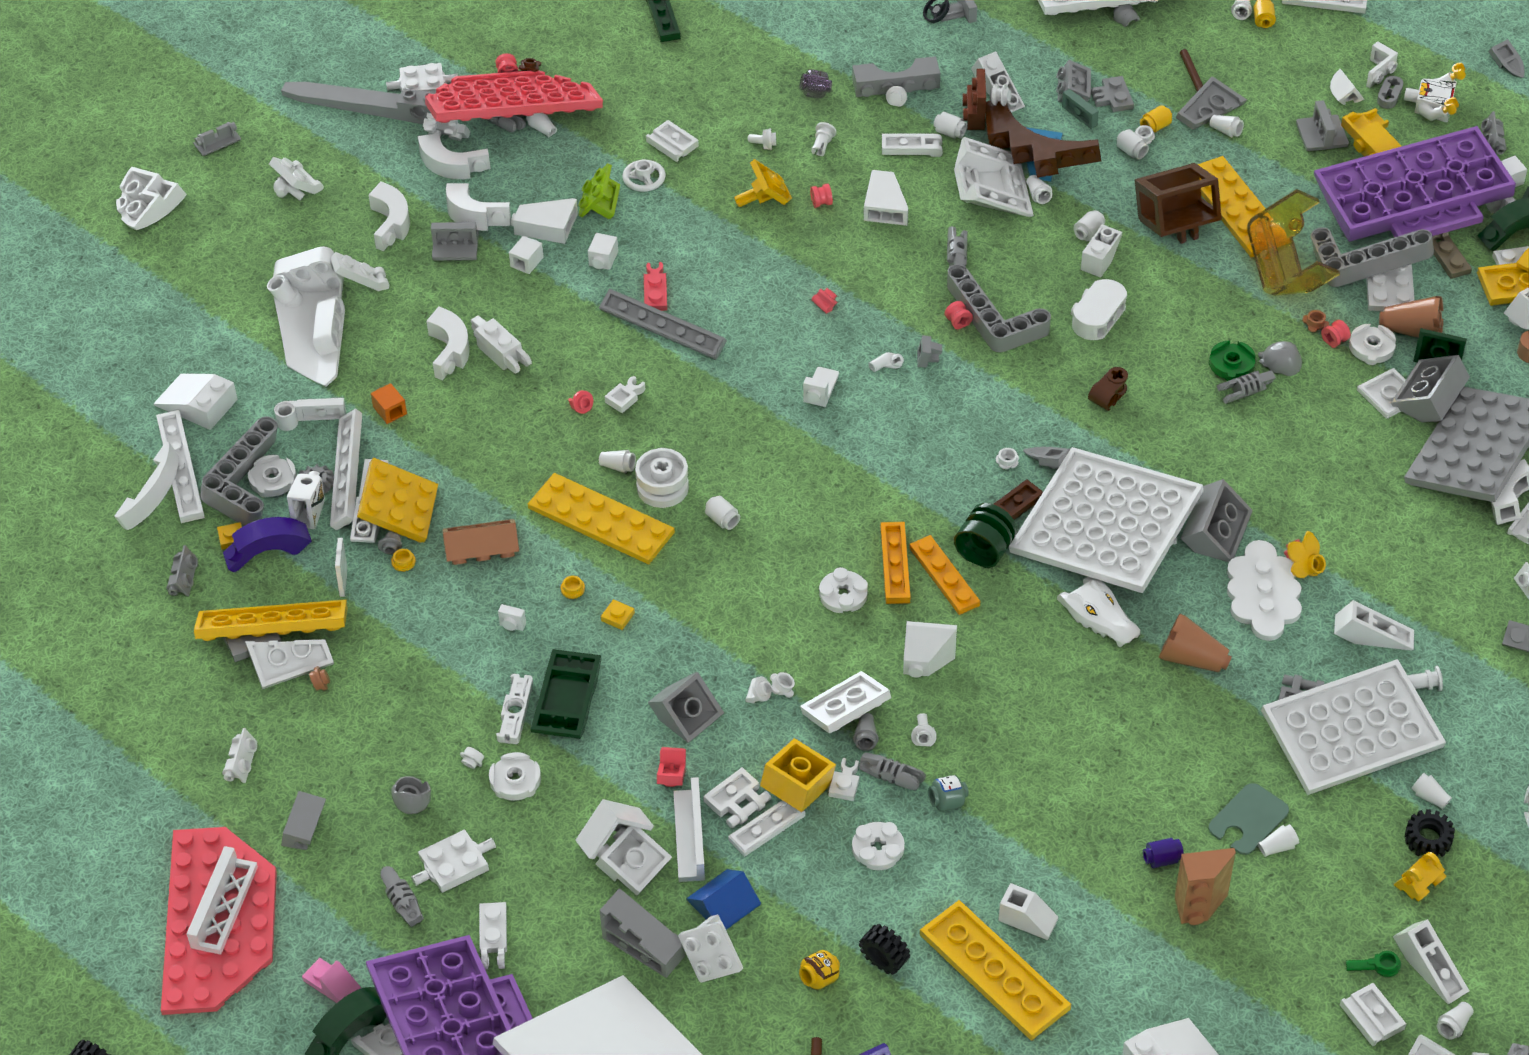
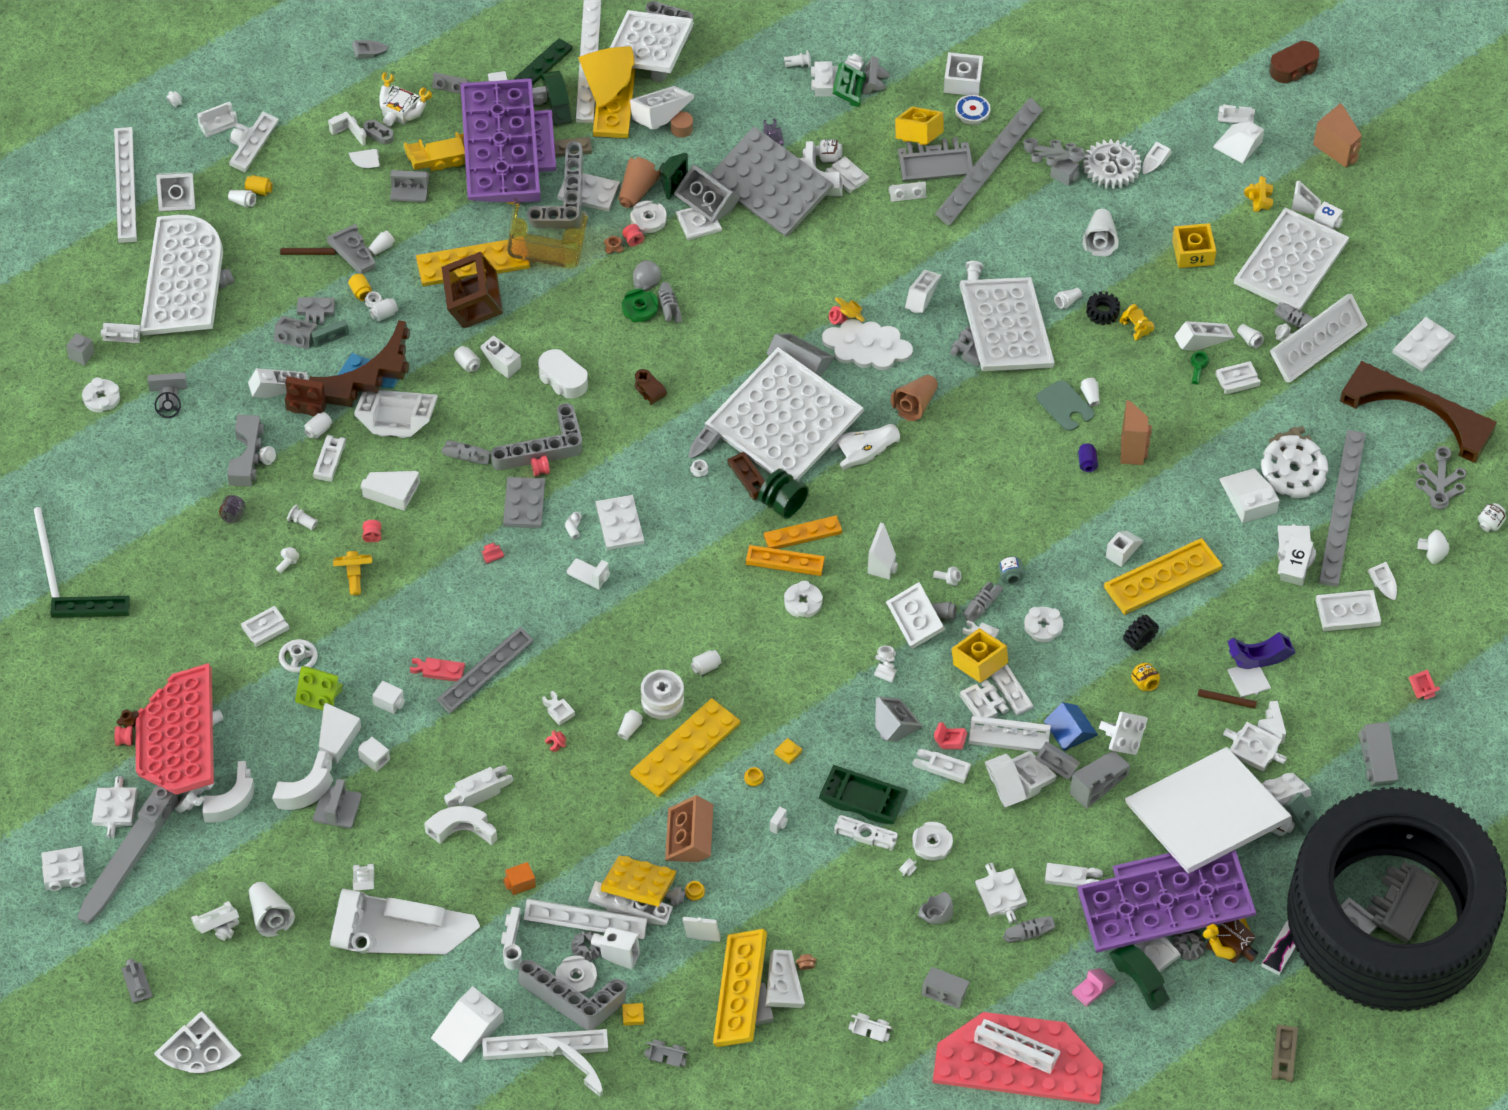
camera: 80 degrees left, 5 degrees up
(265, 535) = (657, 986): dark purple arch -> none
(312, 210) = (269, 910): none -> white cone
(341, 61) = (63, 868): none -> white plate
(392, 204) = (288, 844): white arch -> none
(629, 771) = (942, 765): none -> white hinge
(657, 896) = (1057, 760): none -> light grey tile
(904, 402) = (619, 522): none -> white plate
(905, 314) = (524, 502): none -> light grey plate
(927, 351) = (574, 495): light grey tile -> none
(1000, 94) = (313, 375): white wheel -> none
(1039, 189) = (413, 383): white cone -> none

